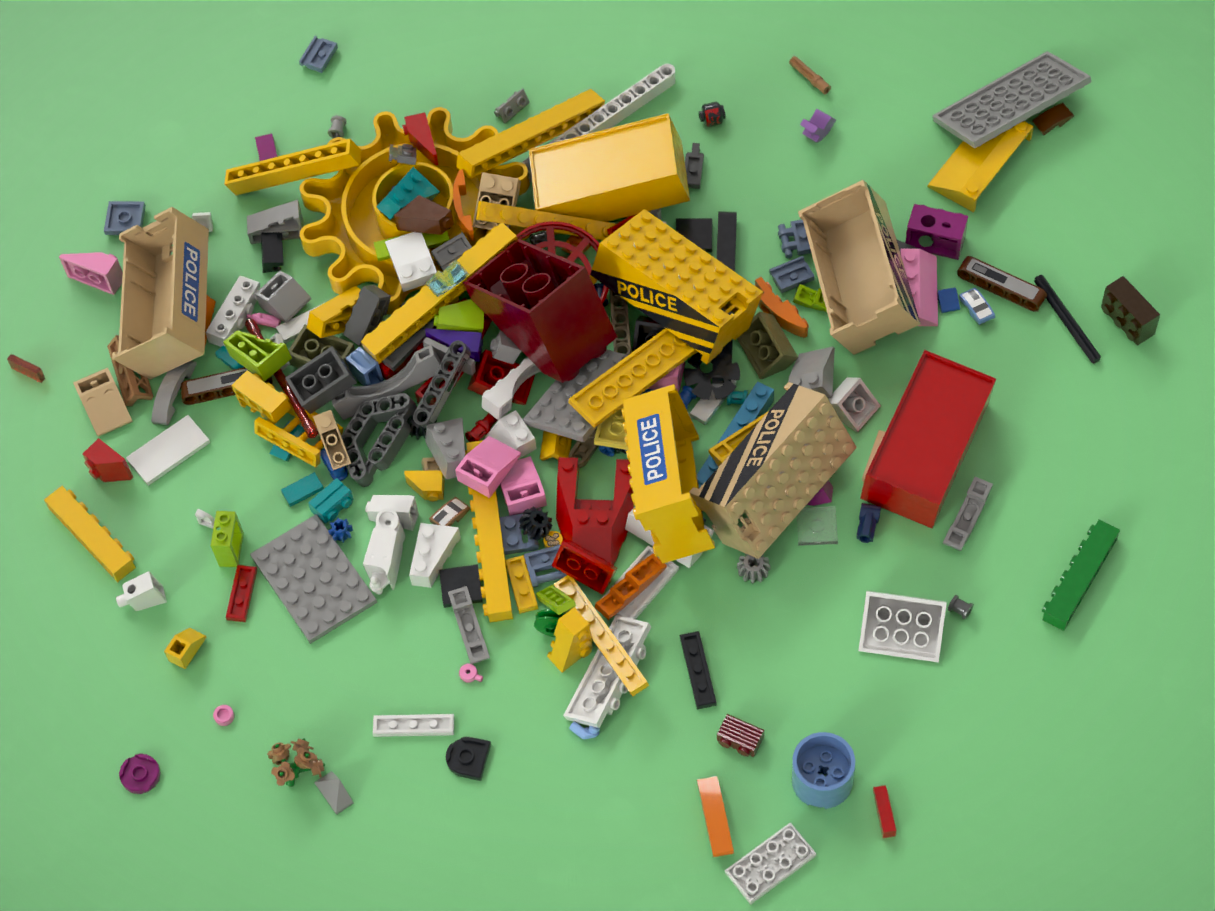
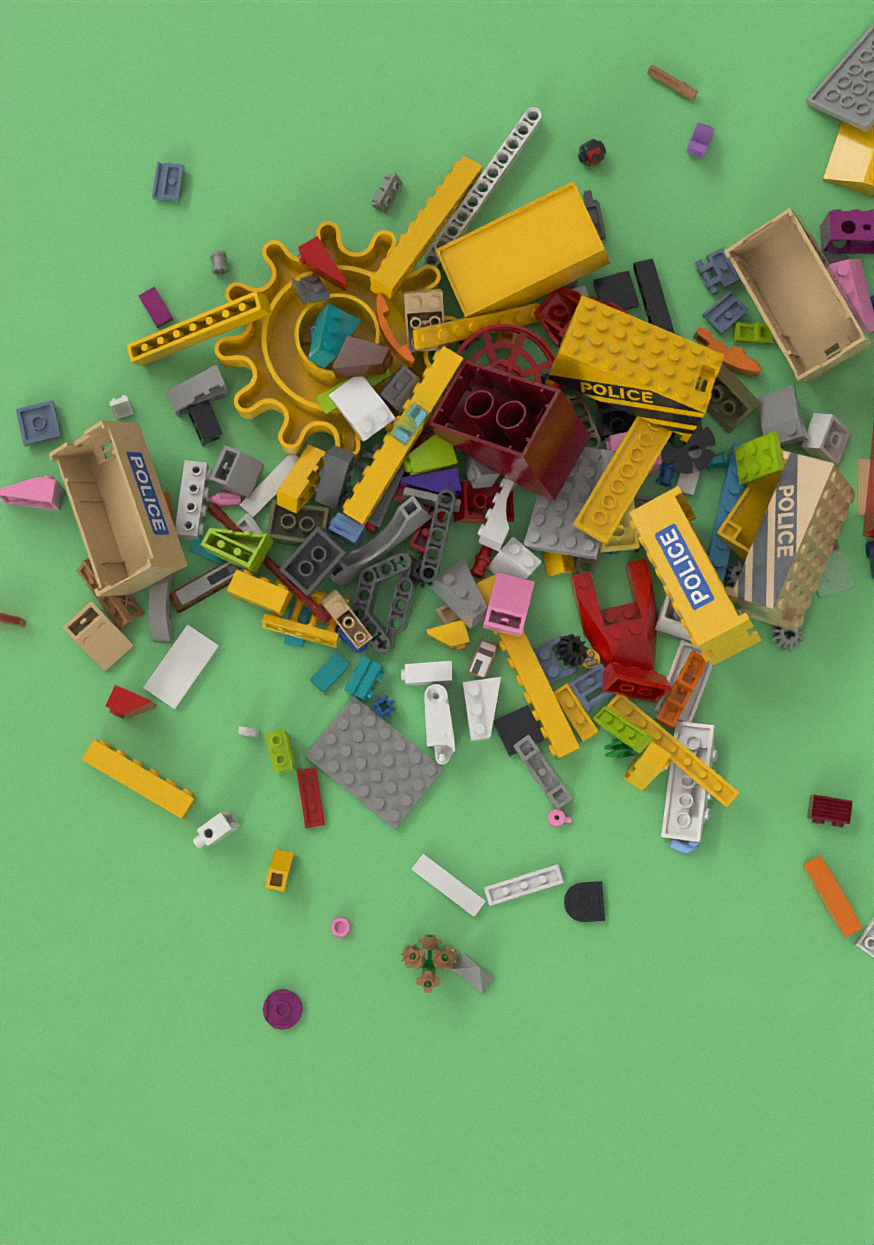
camera: 25 degrees left, 20 degrees up
(341, 705) = (448, 885): none -> white tile
(522, 487) = (545, 613): bright pink slope -> none
(698, 670) = (767, 753): black tile -> none
(767, 390) = (759, 458): none -> lime plate

